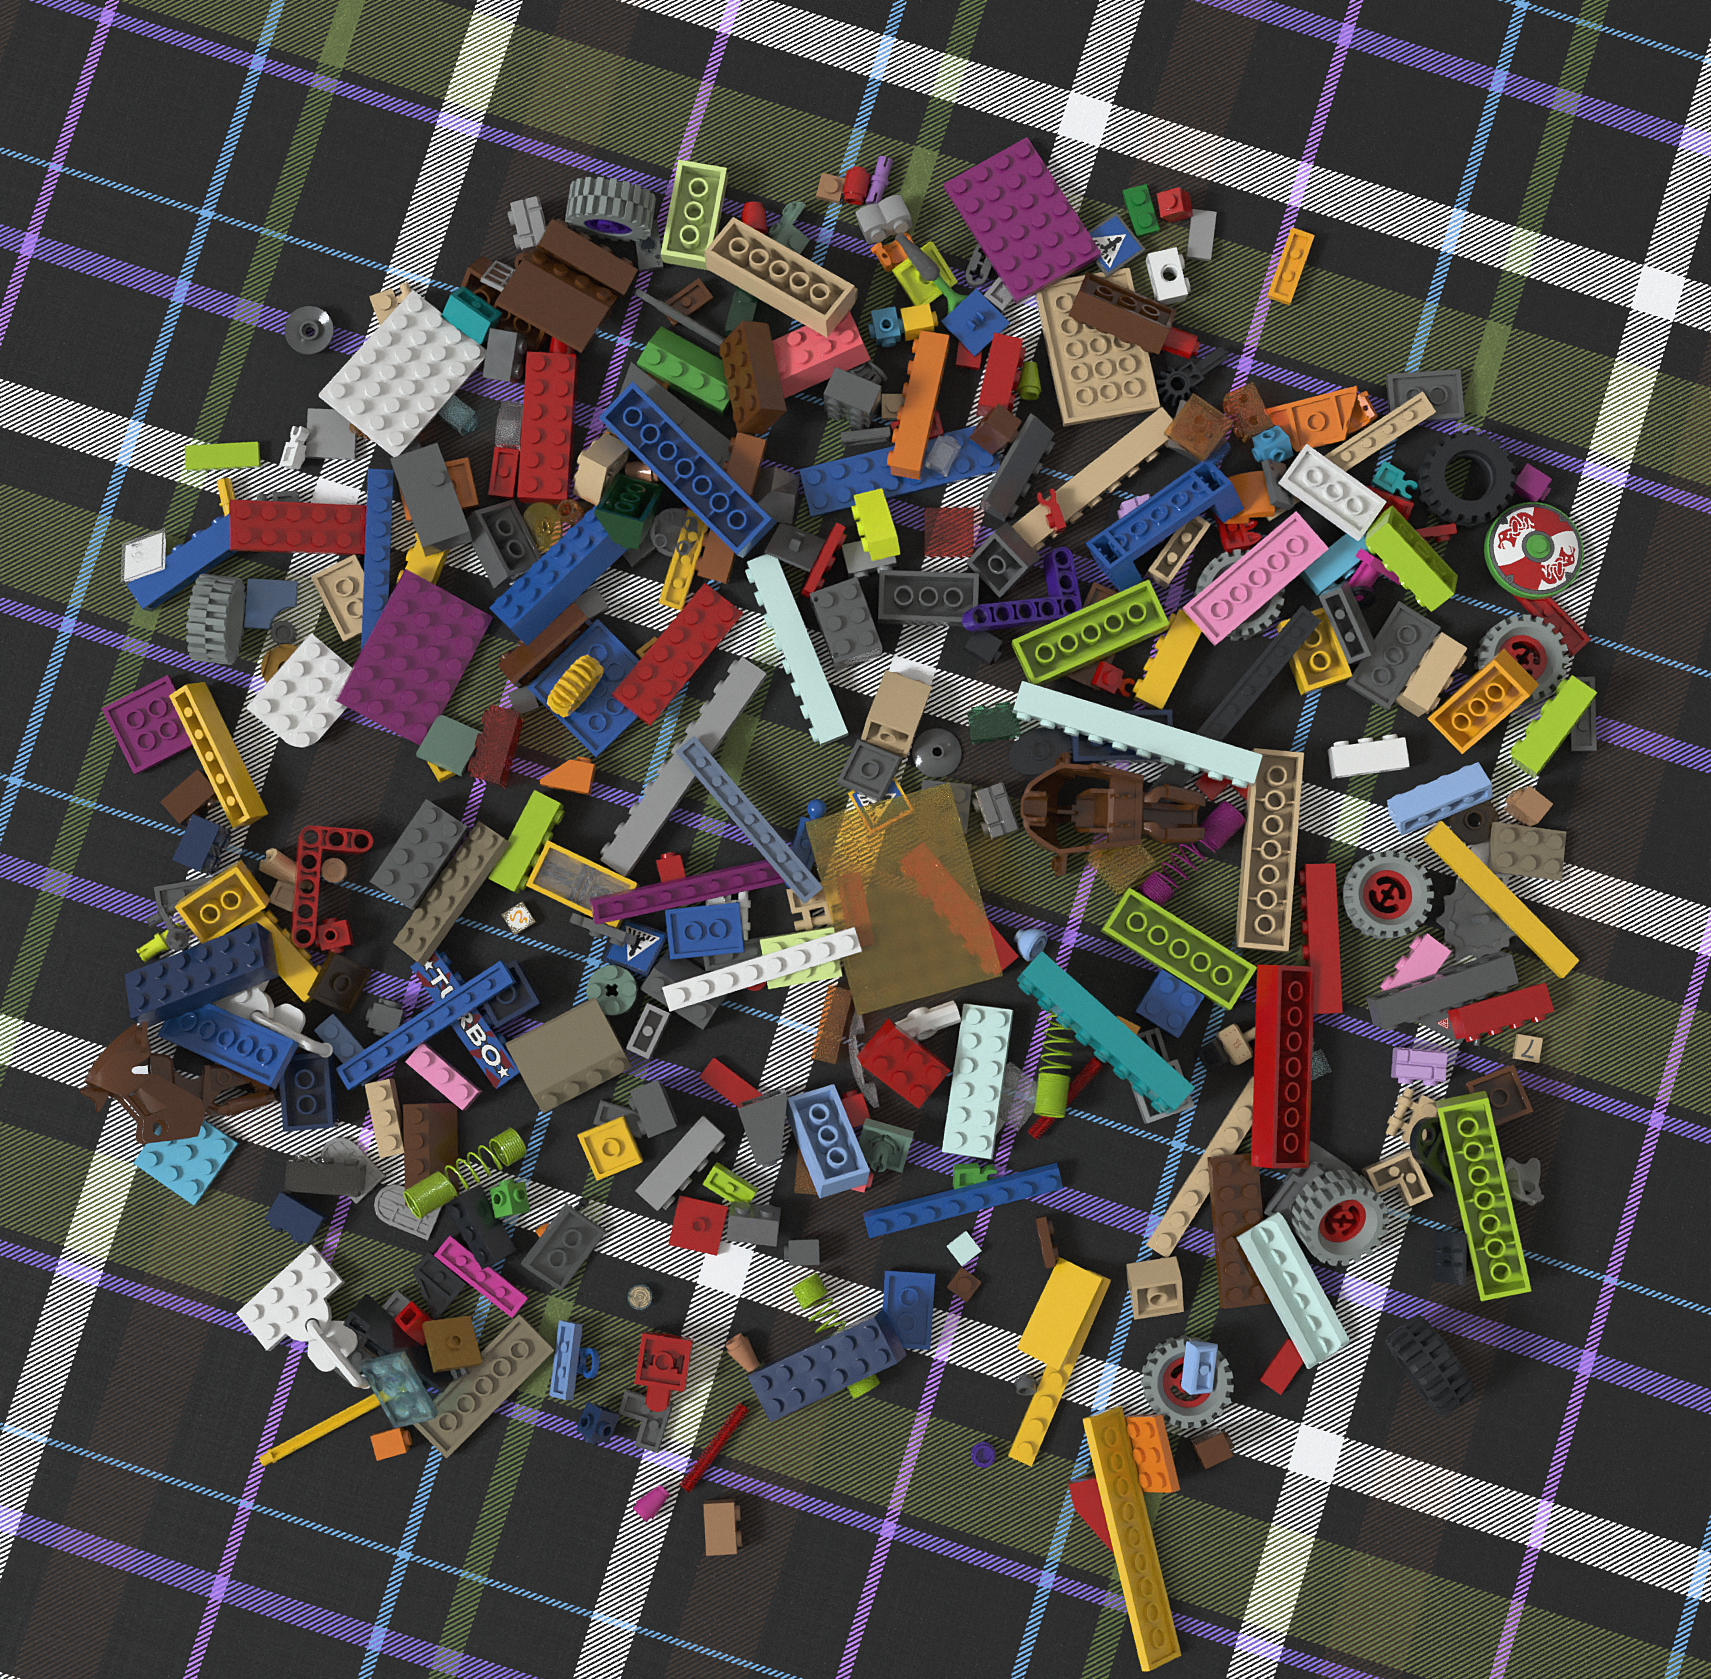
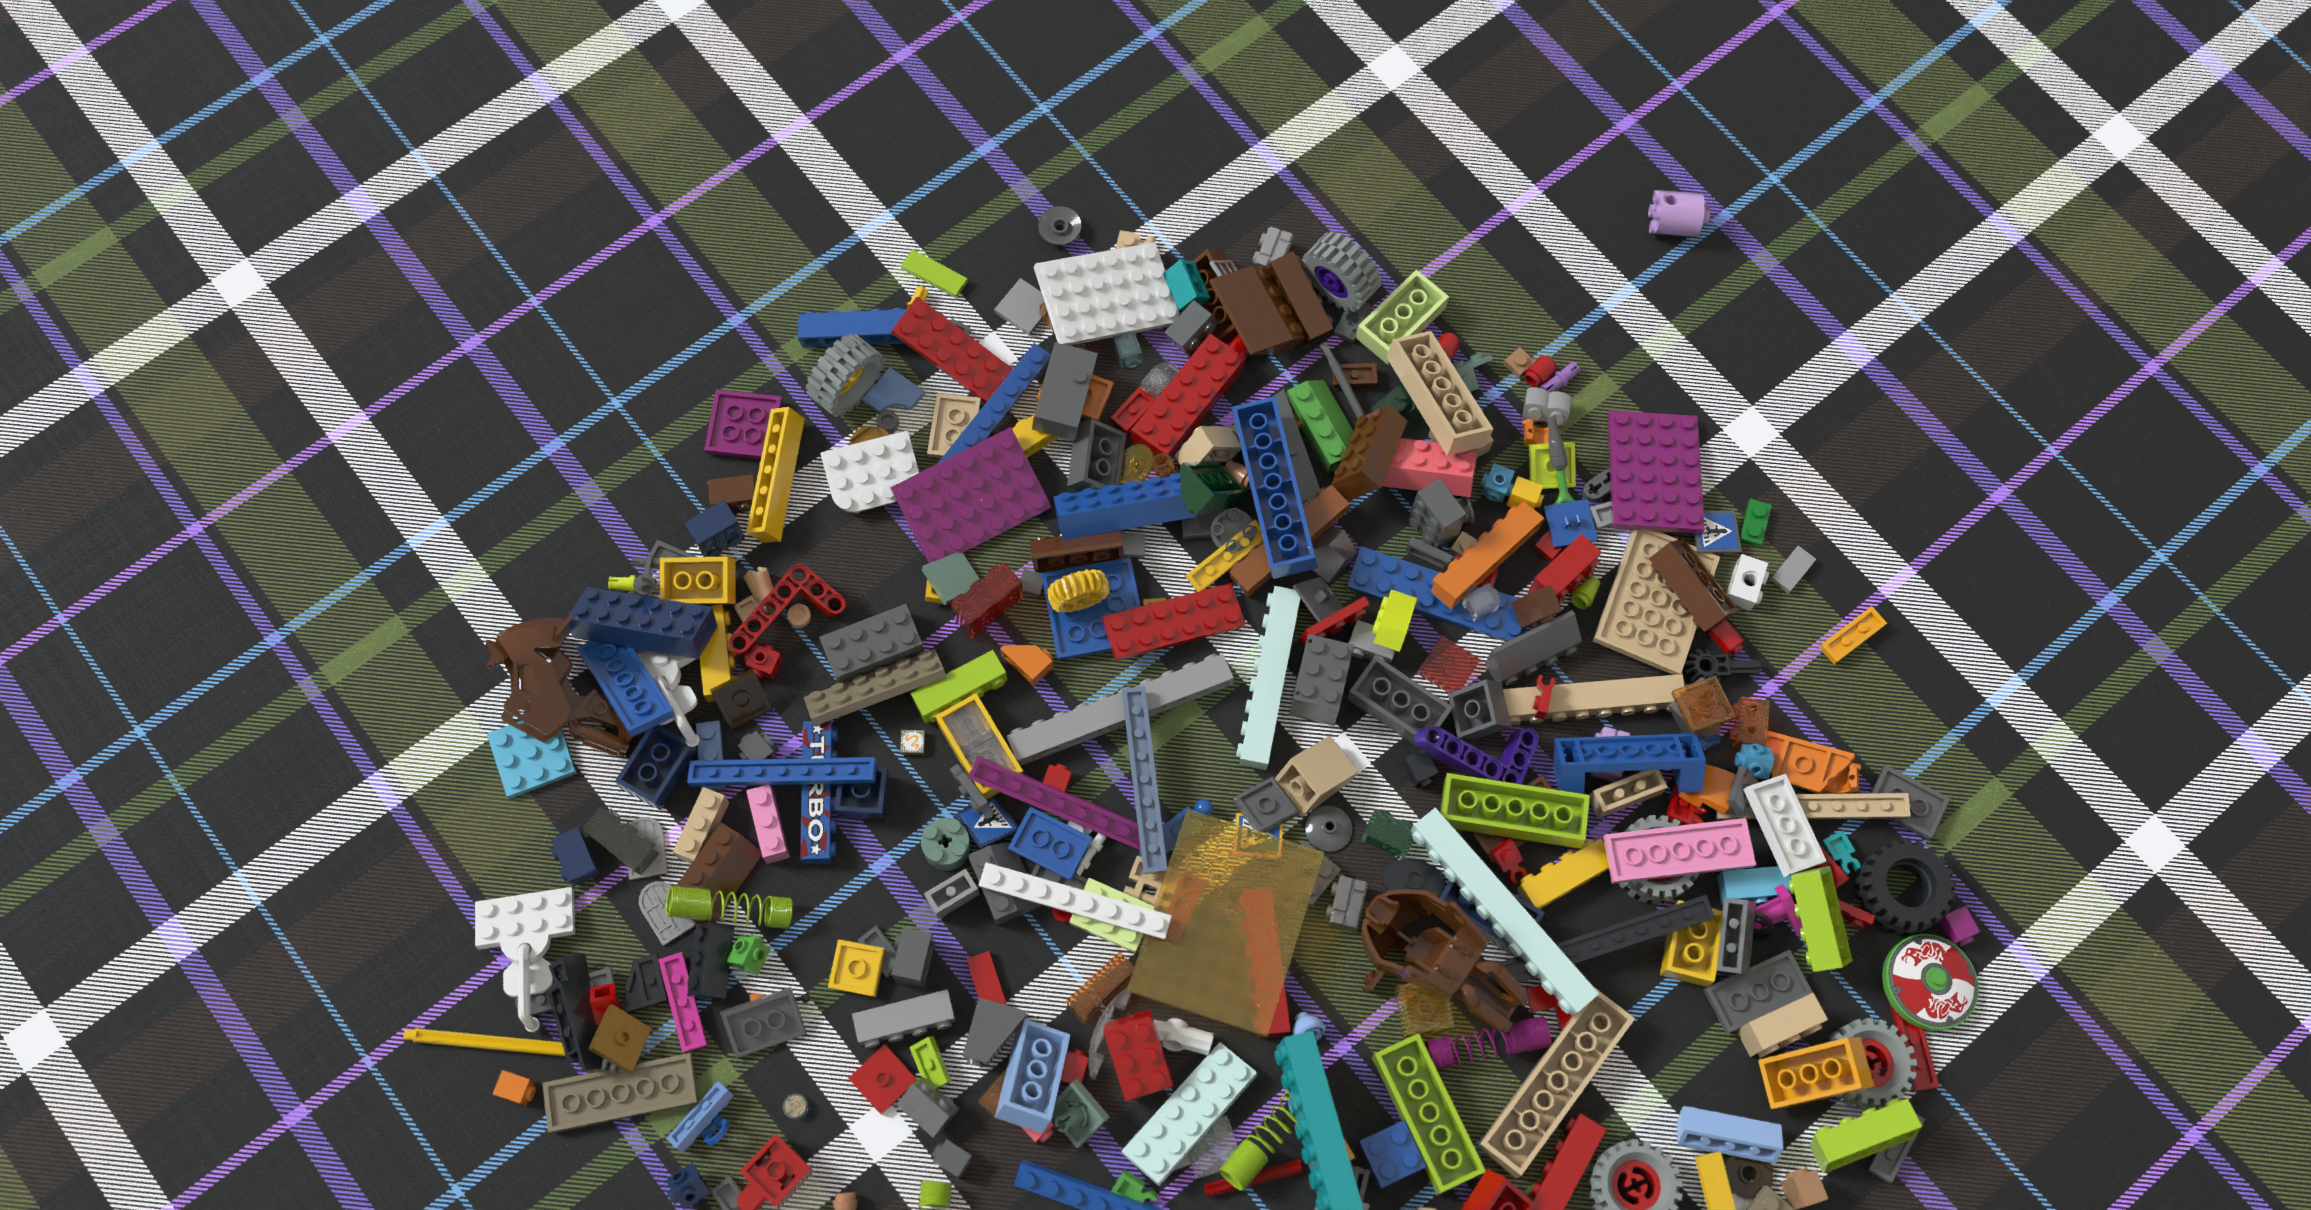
camera: 30 degrees right, 15 degrees down
(143, 556) = (825, 303): clear piece -> none
(294, 451) = (987, 302): white plate -> none
(399, 1389) = (552, 1046): clear light blue plate -> none
(569, 1055) = (876, 869): dark tan slope -> none
(1175, 205) = (1785, 532): red brick -> none
(1368, 756) = (1687, 1060): white brick -> none

